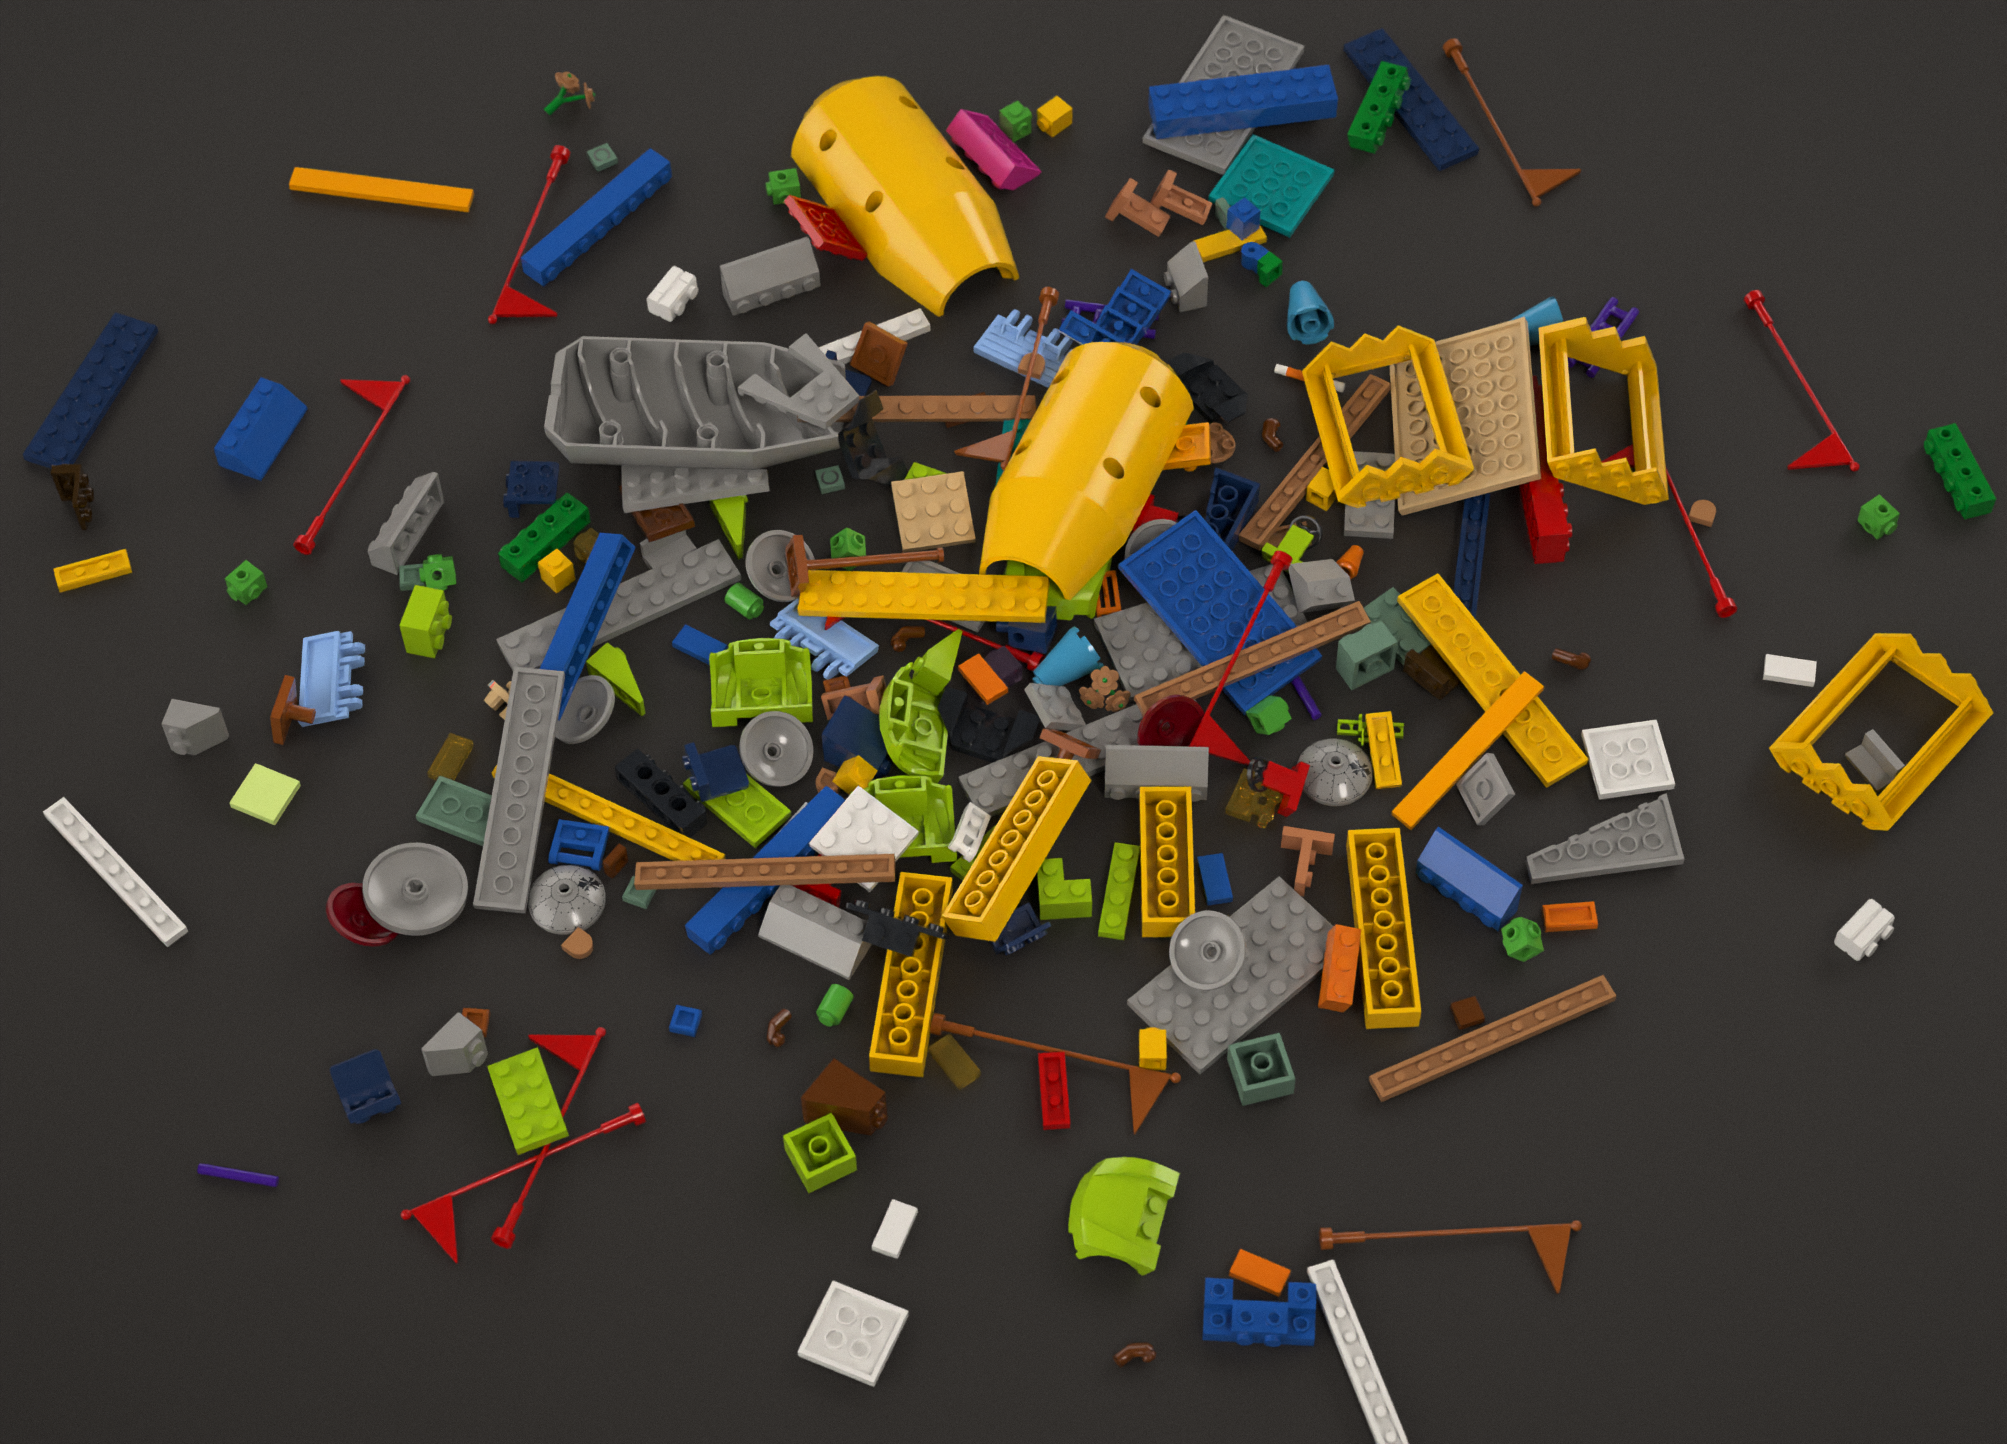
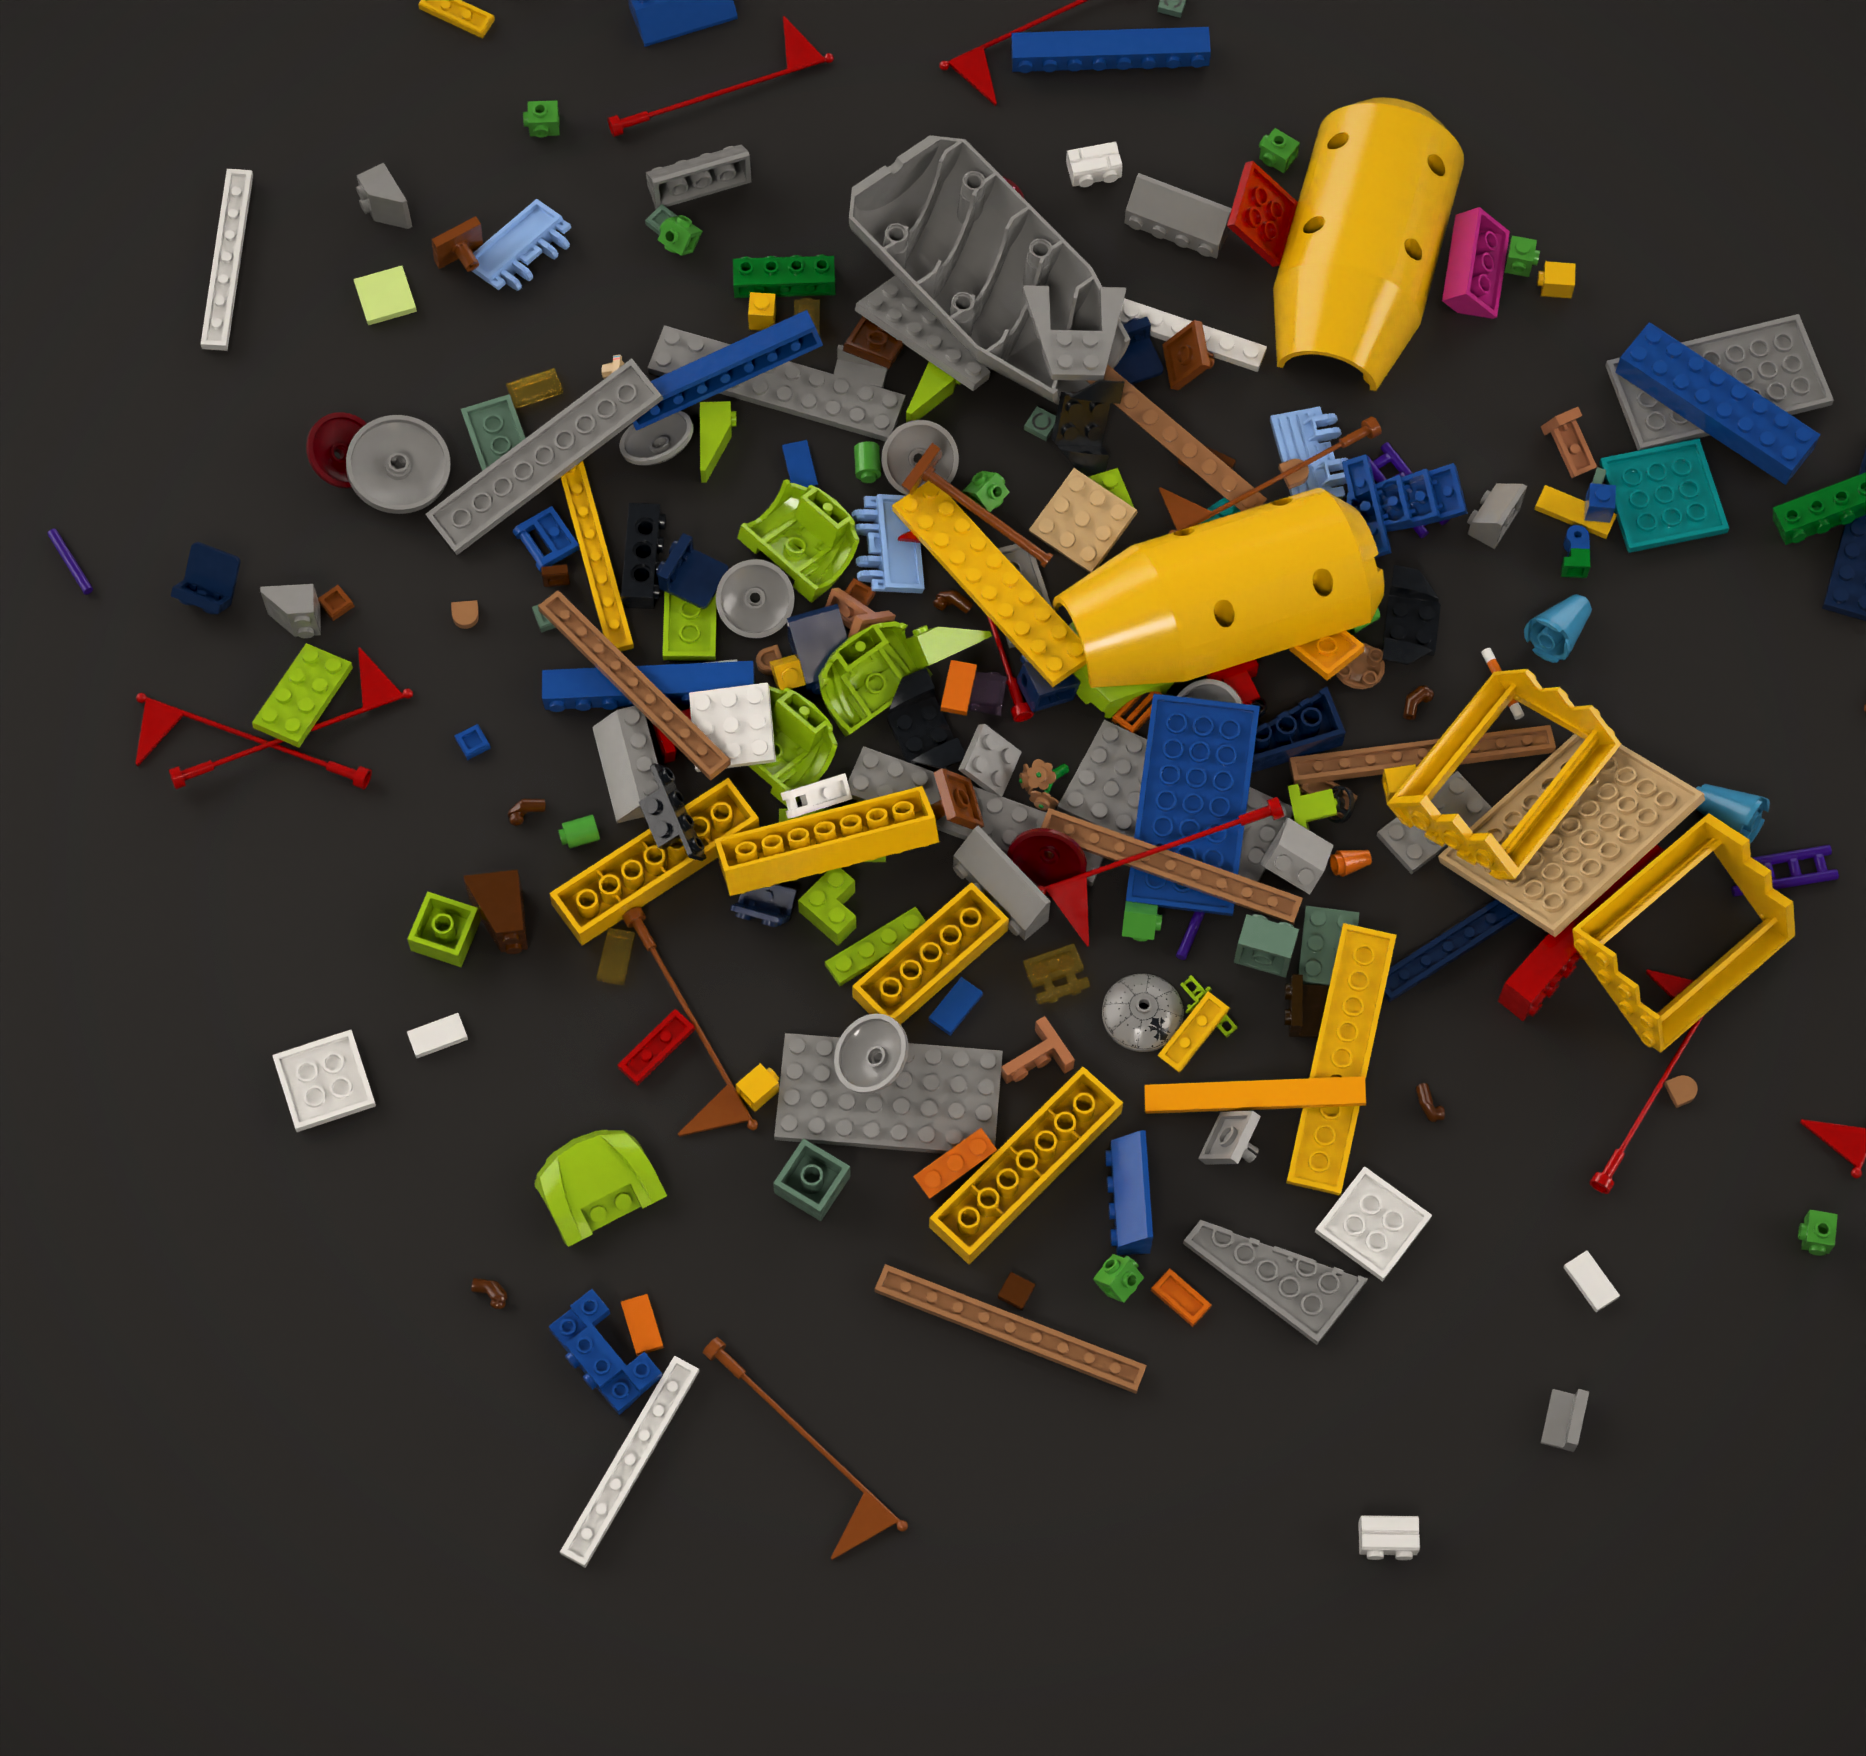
camera: 45 degrees right, 10 degrees up
(425, 621) = (624, 265): lime brick -> none
(530, 484) = (816, 225): dark blue bracket -> none
(566, 911) = (498, 584): light grey dish -> none
(1067, 661) = (1041, 734): dark azure cone -> none
(1137, 210) = (1529, 420): nougat bracket -> none
(1279, 779) = (1080, 977): red piece -> none
(1795, 750) = (1600, 1460): yellow door -> none

